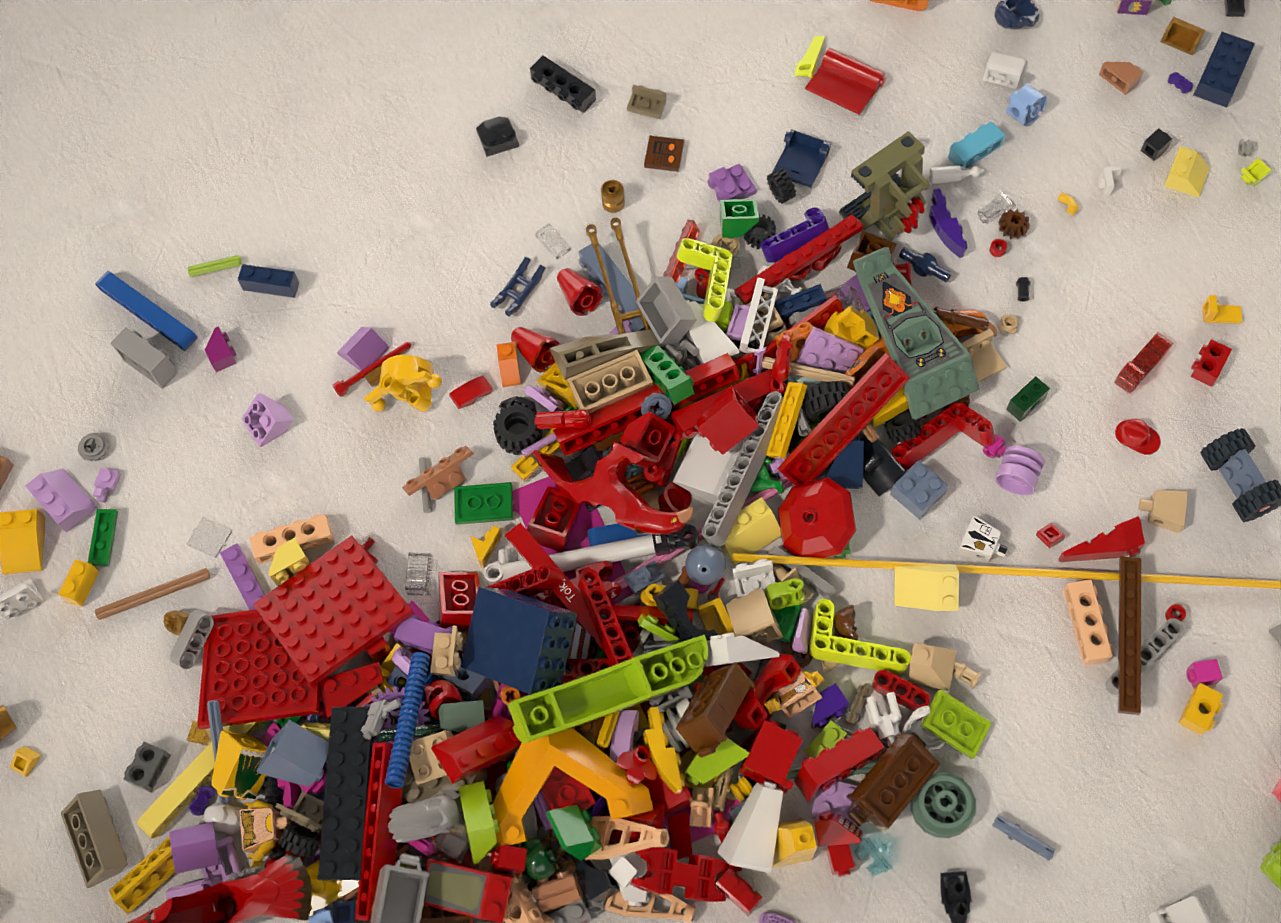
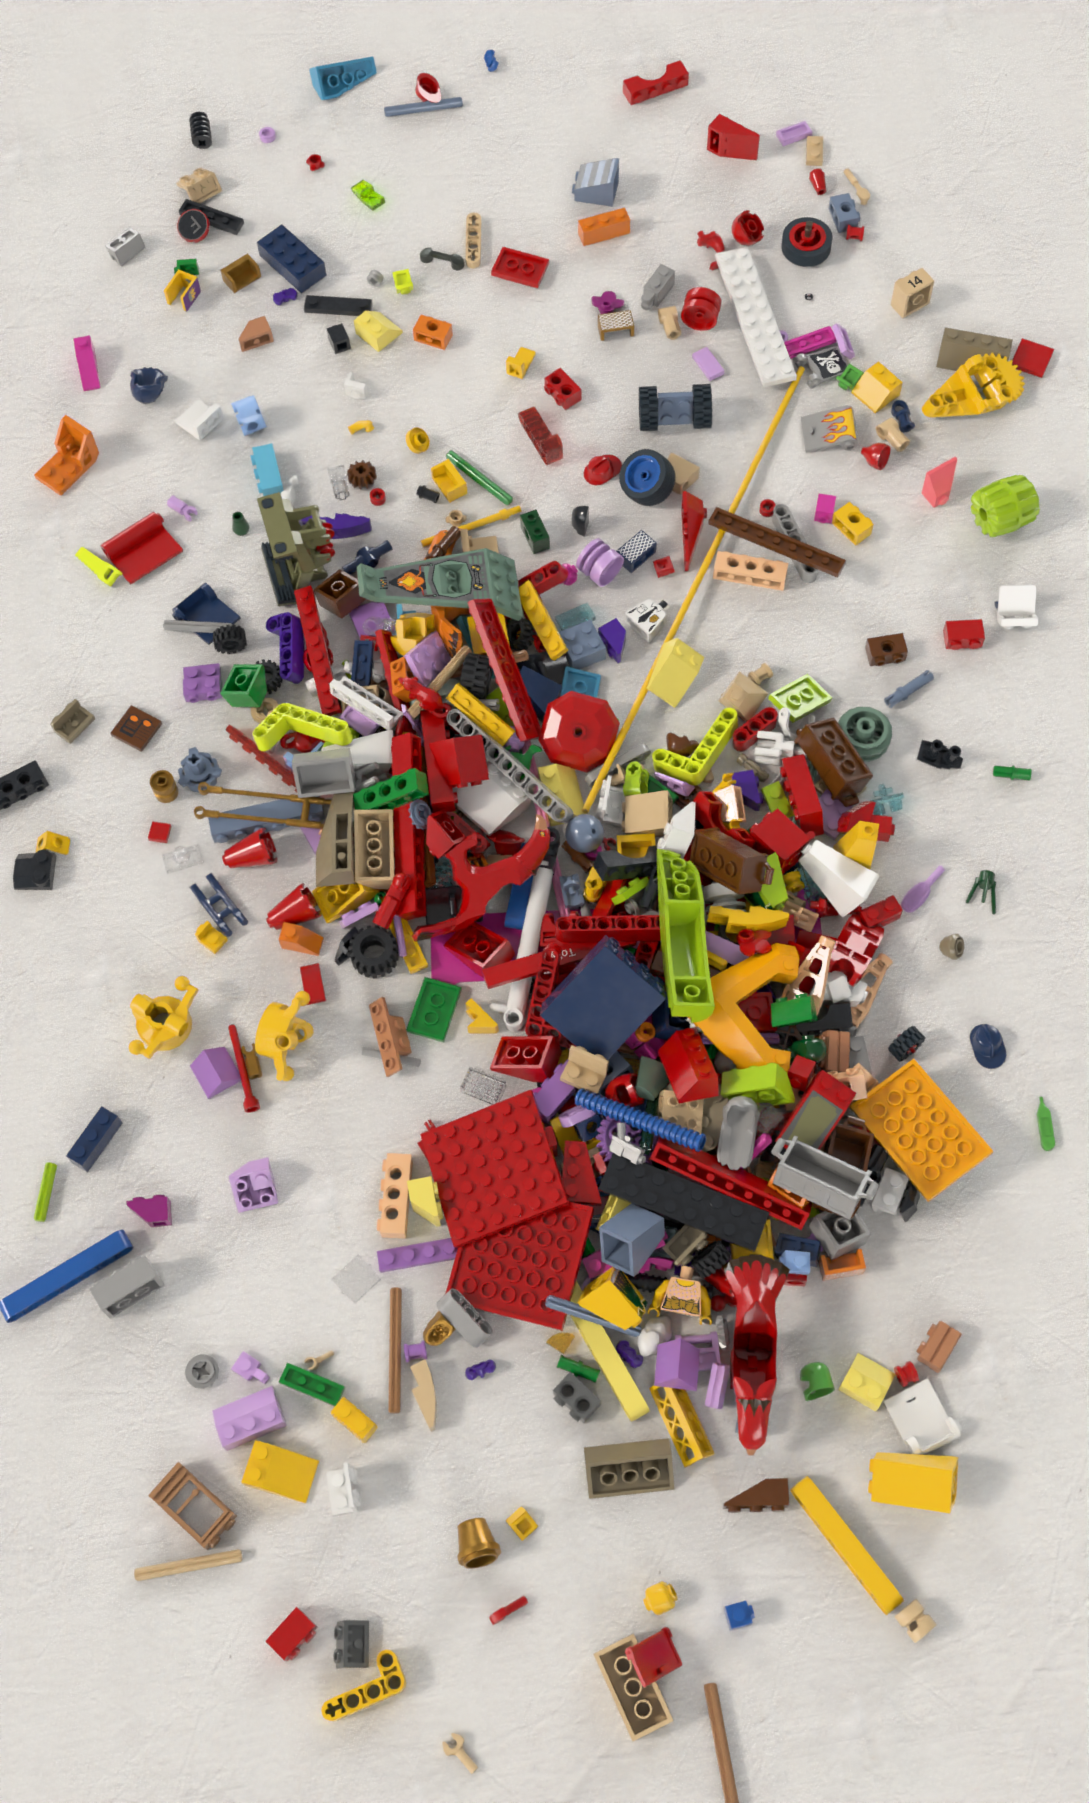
camera: 70 degrees left, 0 degrees up
(117, 634) = (425, 1393): none -> tan slope
(126, 533) = (318, 1360): none -> tan hand
(152, 672) = (480, 1369): none -> dark purple piece
(153, 610) = (415, 1351): none -> medium lavender bush
(175, 758) = (578, 1368): none -> green pin
(383, 297) = (176, 1027): none -> yellow piece
(485, 293) = (210, 937): none -> yellow bracket
(527, 139) = (53, 842): none -> yellow bracket
(571, 213) = (159, 832): none -> red tile
(641, 214) = (198, 769): none -> sand blue piece
(783, 154) = (192, 626): none -> light grey axle
(872, 506) = (580, 682): none -> dark azure tile
(903, 94) = (181, 507): none -> lavender bar
(922, 439) = (542, 621): none -> yellow plate
(942, 518) = (614, 638): none -> dark purple slope
(949, 473) = (575, 616): none -> clear light blue plate
(1035, 364) = (503, 515): none -> yellow bar
(1047, 301) = (449, 480): none -> yellow panel
(1054, 502) = (637, 550): none -> dark blue panel
(1058, 784) = (893, 643): none -> reddish brown brick
(1063, 436) = (580, 519): none -> black brick
(1066, 327) = (480, 478): none -> green axle
(1077, 255) = (417, 440): none -> yellow plate
(1119, 876) = (964, 634): none -> red brick
(1142, 478) = (647, 477): none -> wheel
(1195, 129) = (336, 305): none -> black plate
(1211, 221) = (432, 332): none -> orange brick

